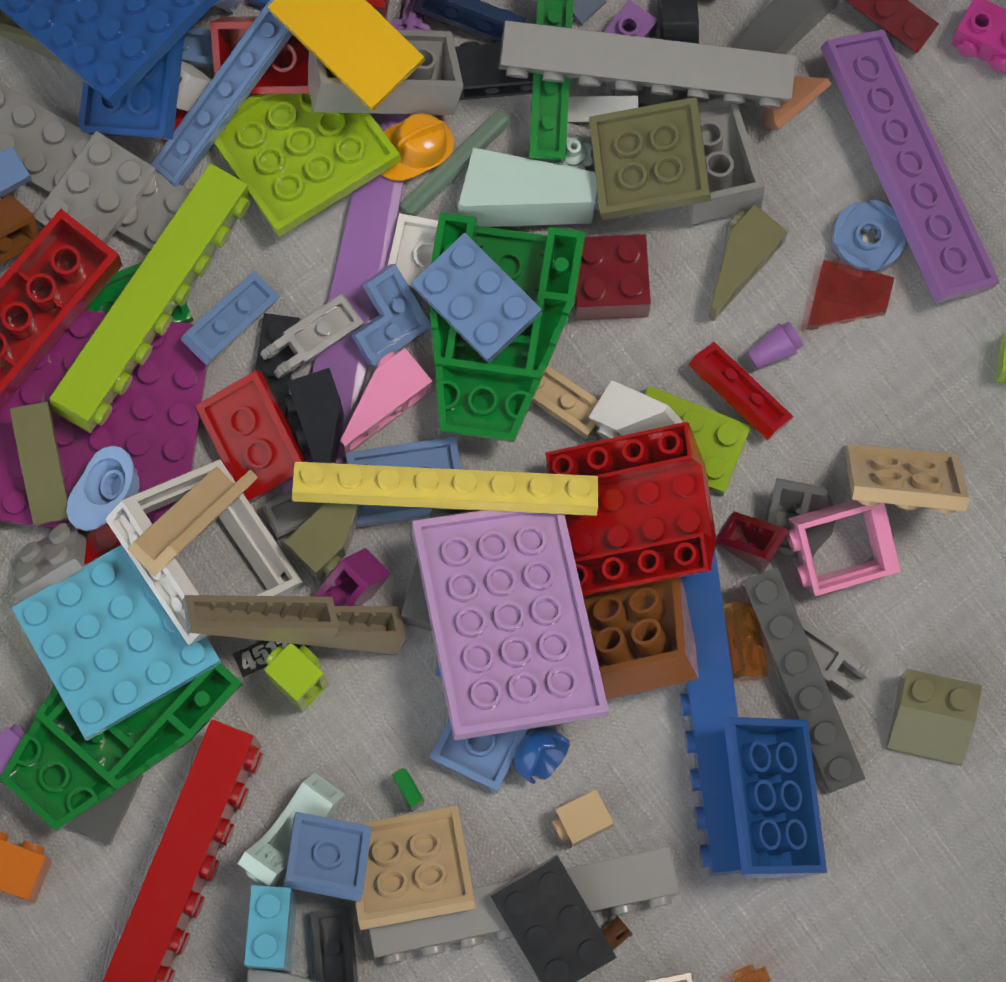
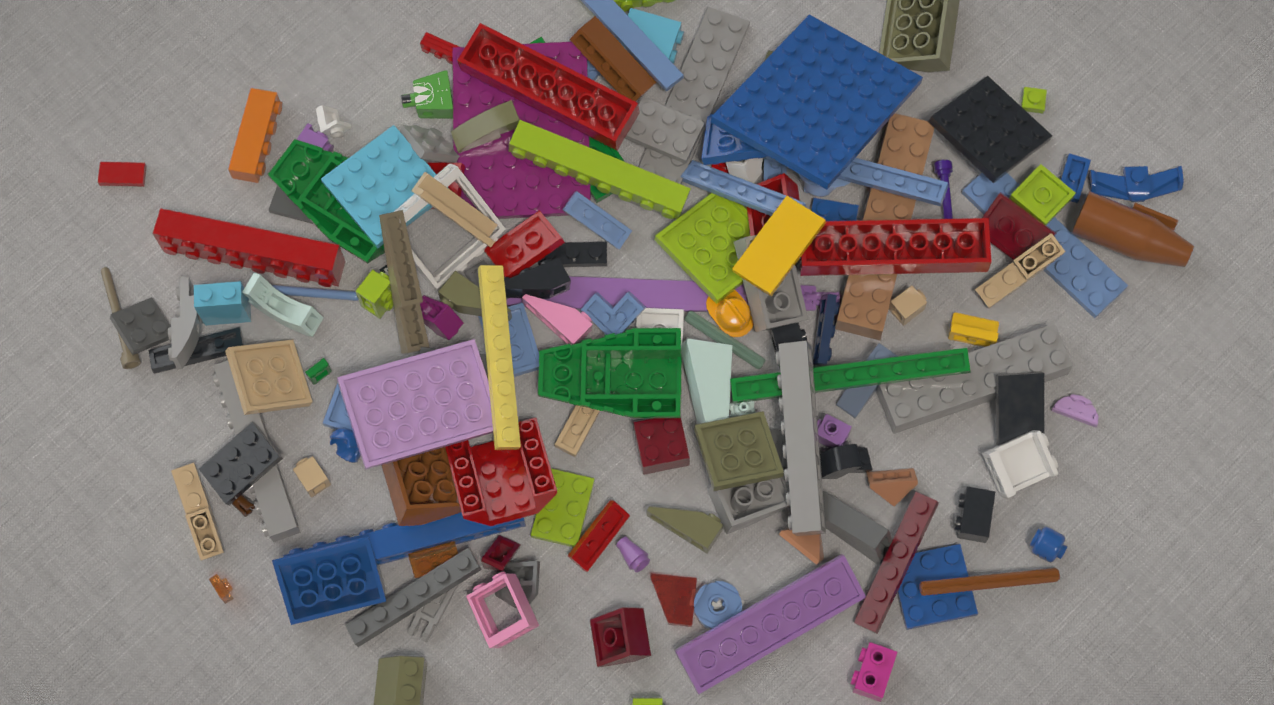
camera: 85 degrees right, 5 degrees down
(101, 488) = (475, 164): light blue piece -> none
(238, 877) = (317, 293): none -> medium blue piece
(315, 334) = (594, 271): light grey hinge -> none
(327, 856) = (266, 325): medium blue plate -> none
(476, 298) = (625, 357): medium blue plate -> none
(583, 107) = (775, 417): white sticker -> none
(629, 411) = (568, 466): white slope -> none
(901, 381) = (620, 637): none -> dark red slope
(906, 478) = (549, 641): tan plate -> none

